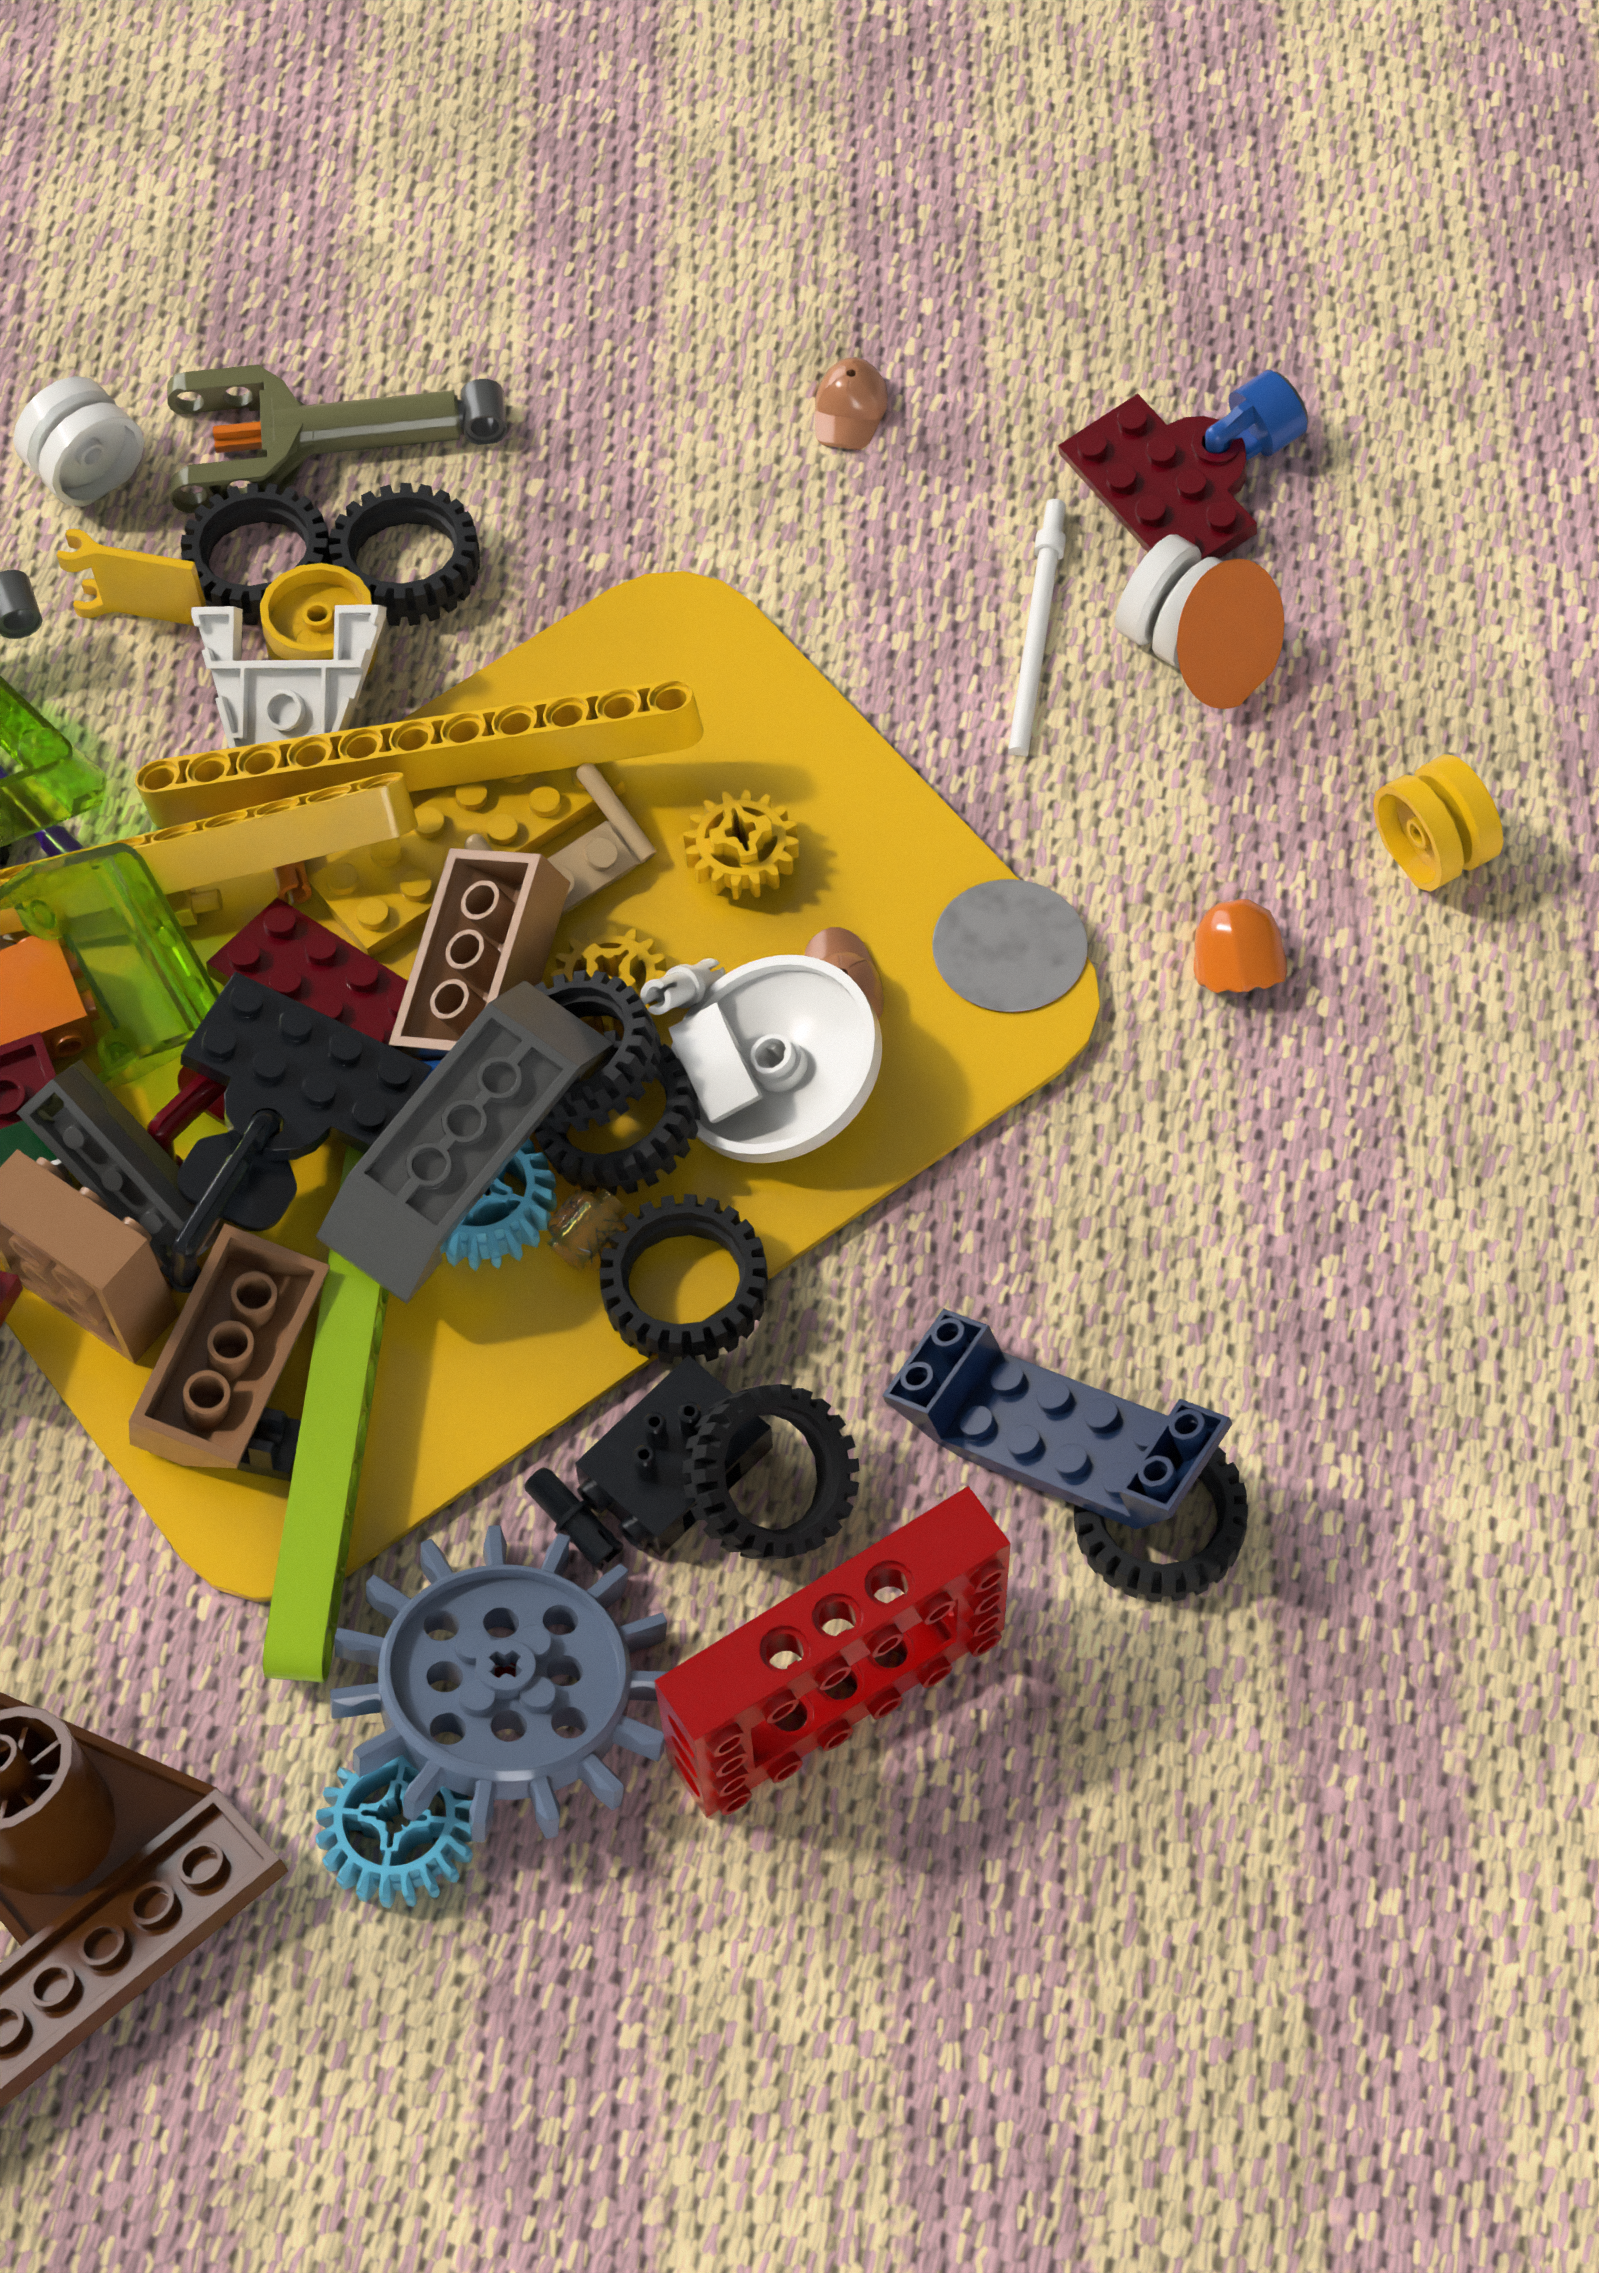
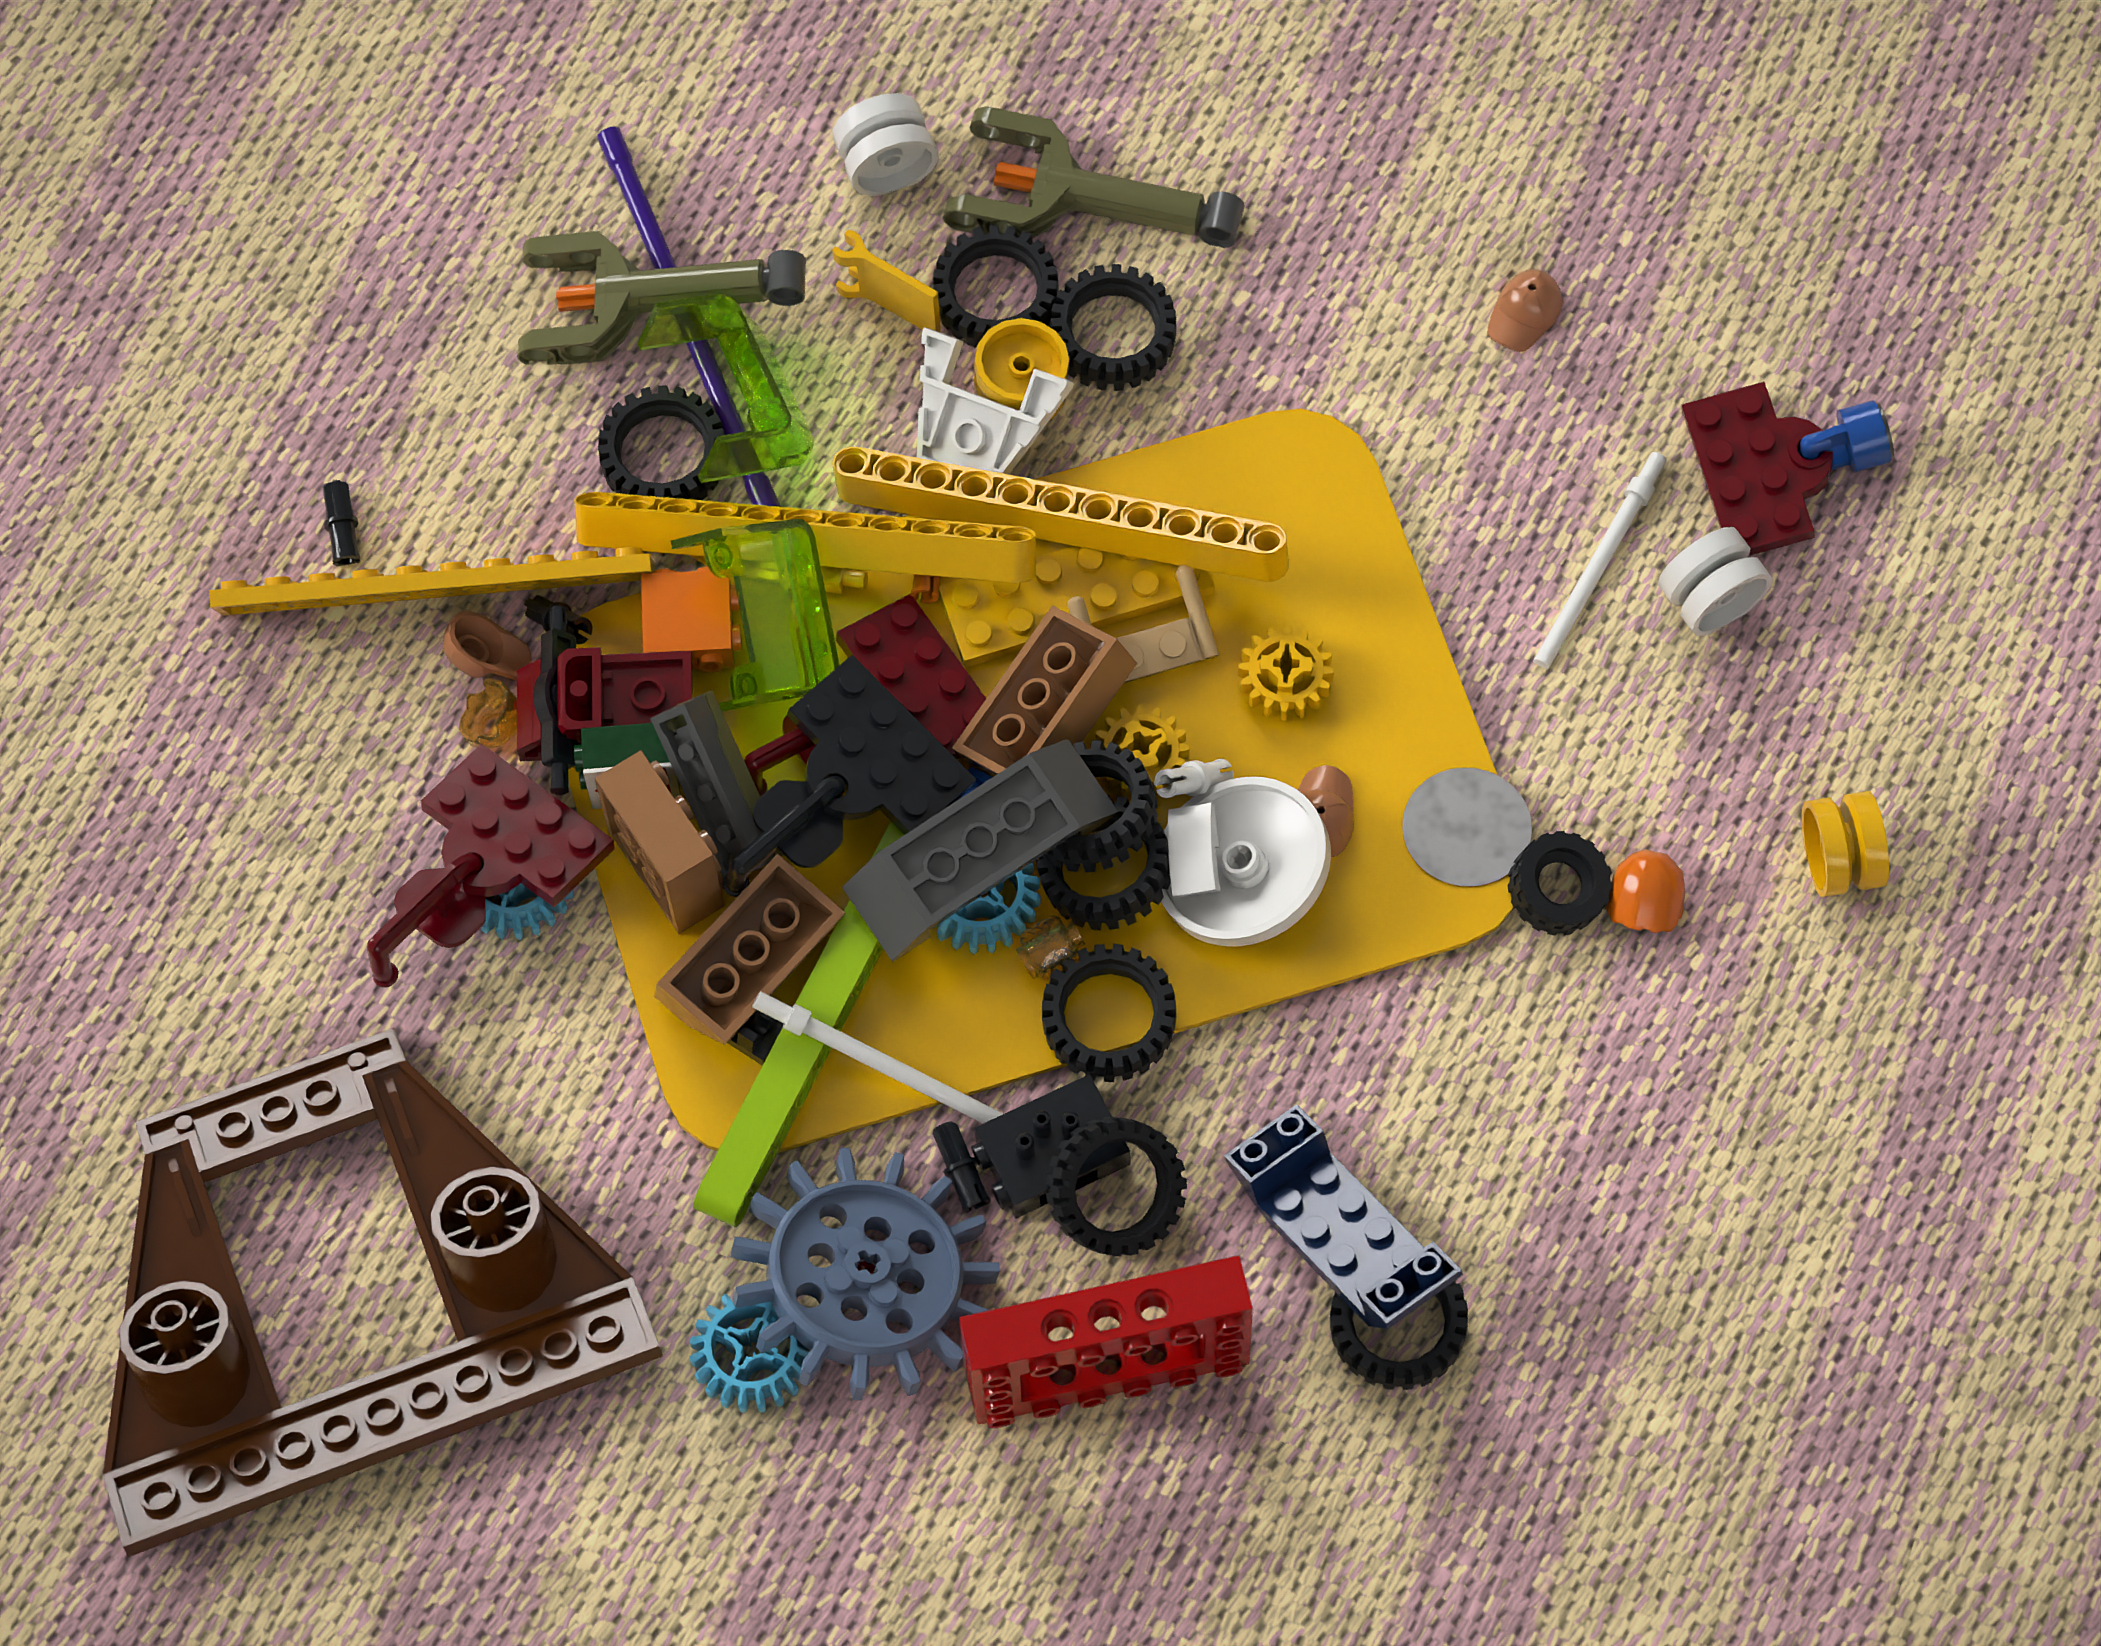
camera: 20 degrees right, 5 degrees up
(318, 1406) = (799, 1020): none -> white bar
(1160, 938) = (1577, 854): none -> black tyre
(1230, 633) = (1745, 625): orange sticker -> none

